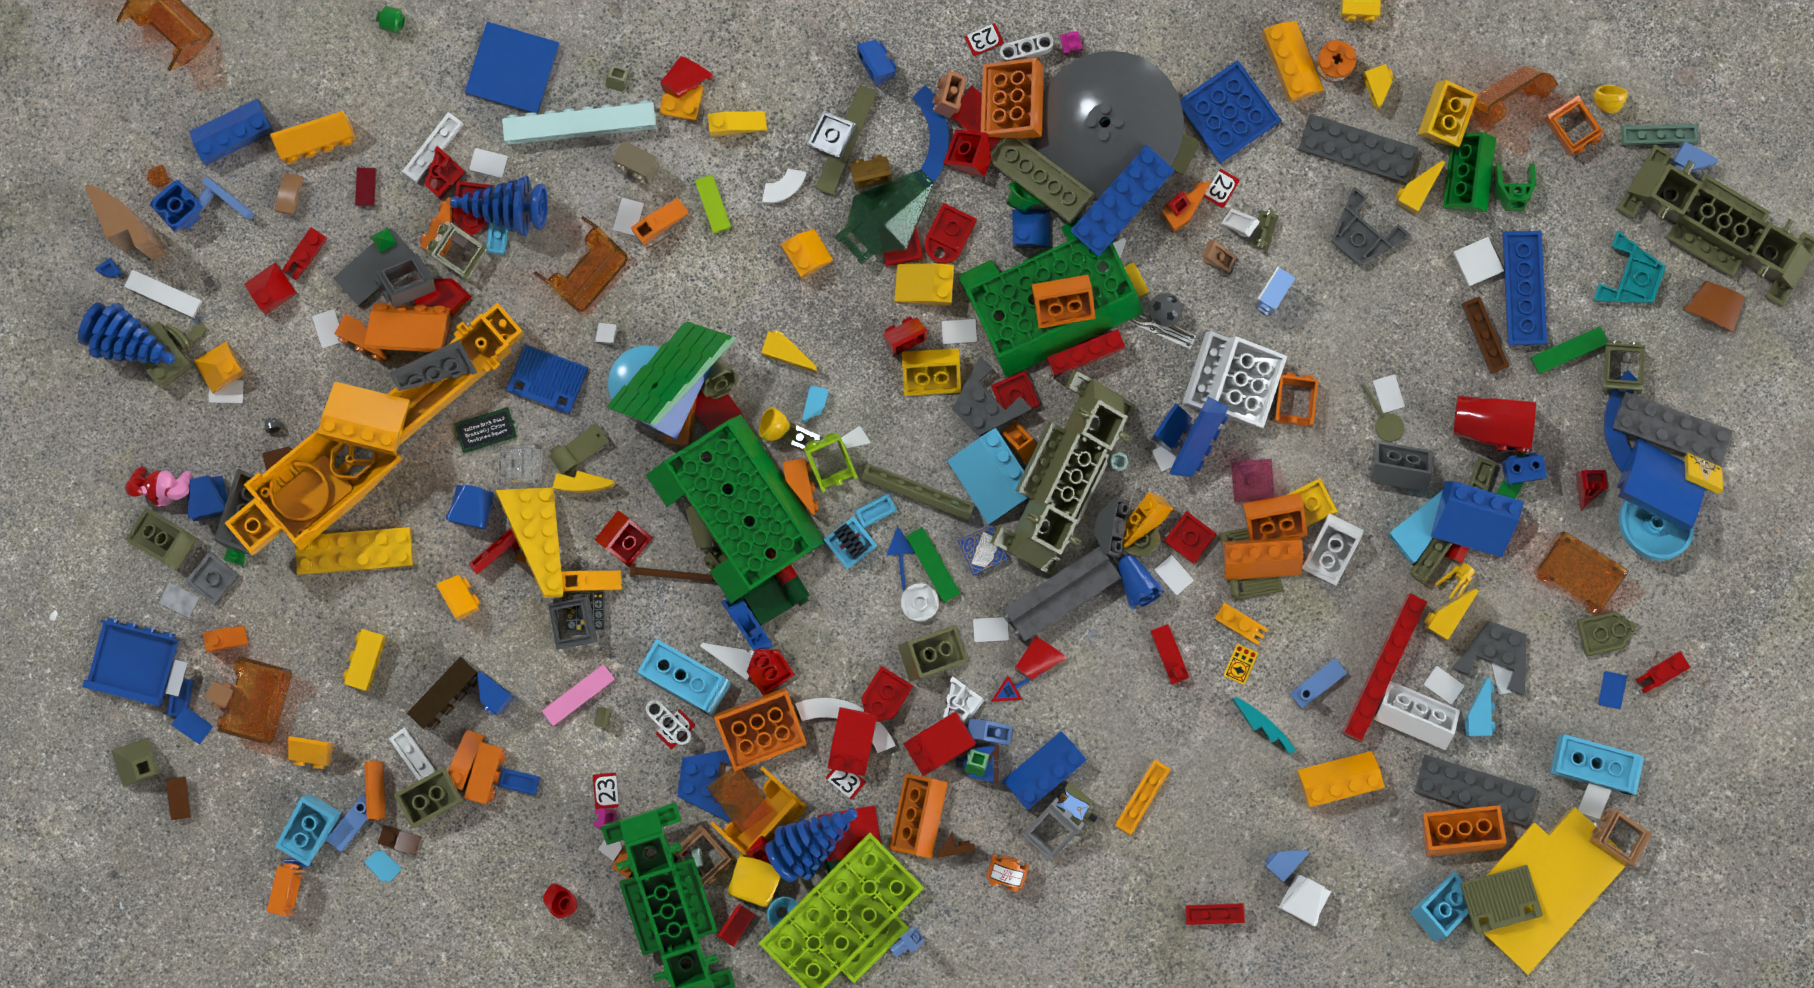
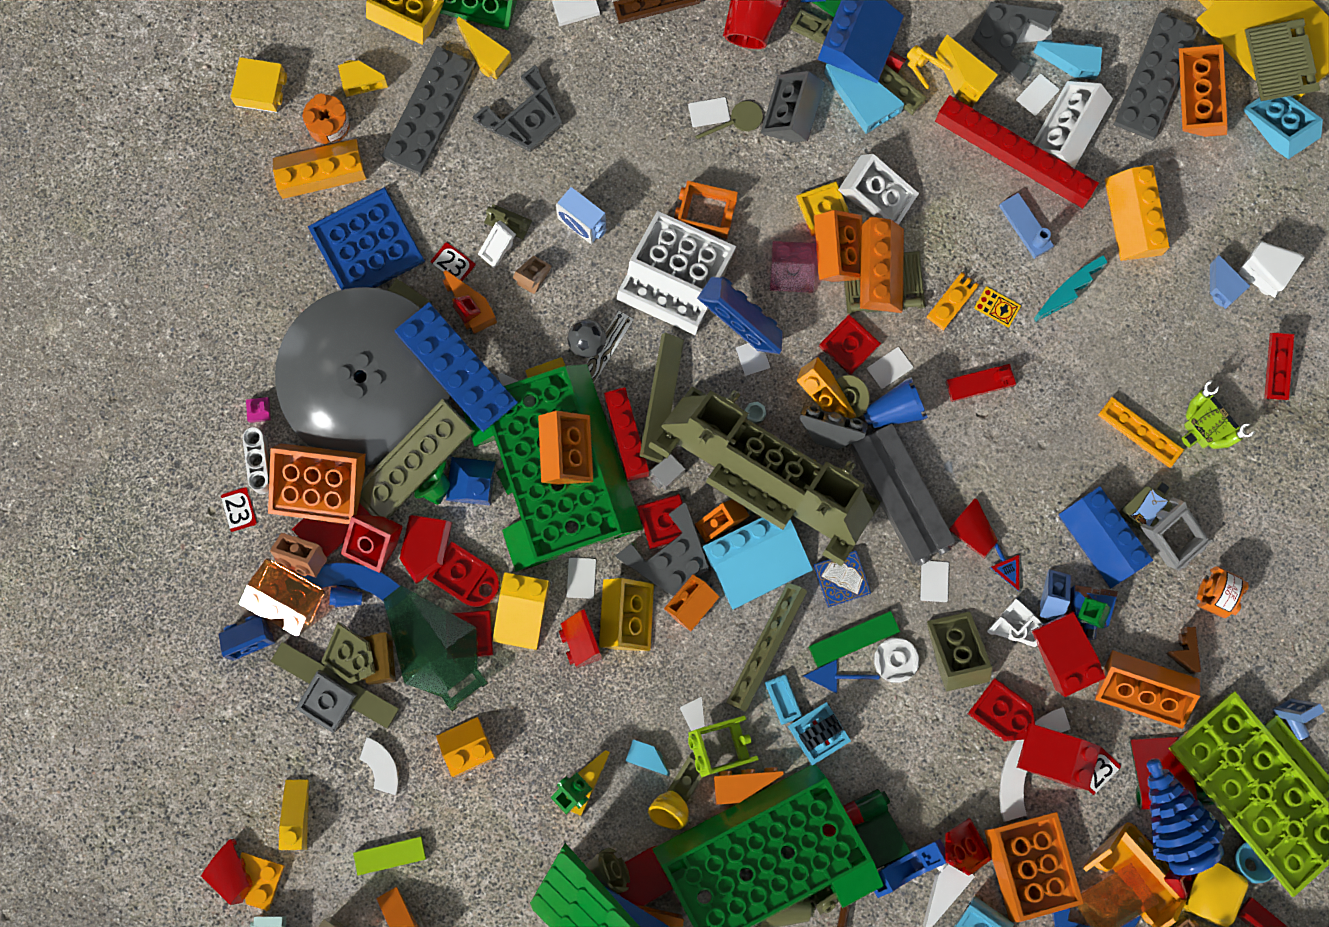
camera: 85 degrees left, 5 degrees down
(777, 341) = (574, 789): none -> green brick
(871, 147) = (348, 655): none -> olive tile
(912, 86) = (282, 597): none -> clear orange slope
(919, 136) = (344, 597): none -> blue cone
(947, 424) = (691, 602): none -> orange brick
(970, 197) = (424, 545): none -> red tile
(1056, 391) = (666, 473): none -> light grey brick
(1128, 379) = (662, 391): none -> olive tile
(1156, 855) = (1211, 423): none -> lime torso
(1172, 428) = (723, 347): blue slope -> none

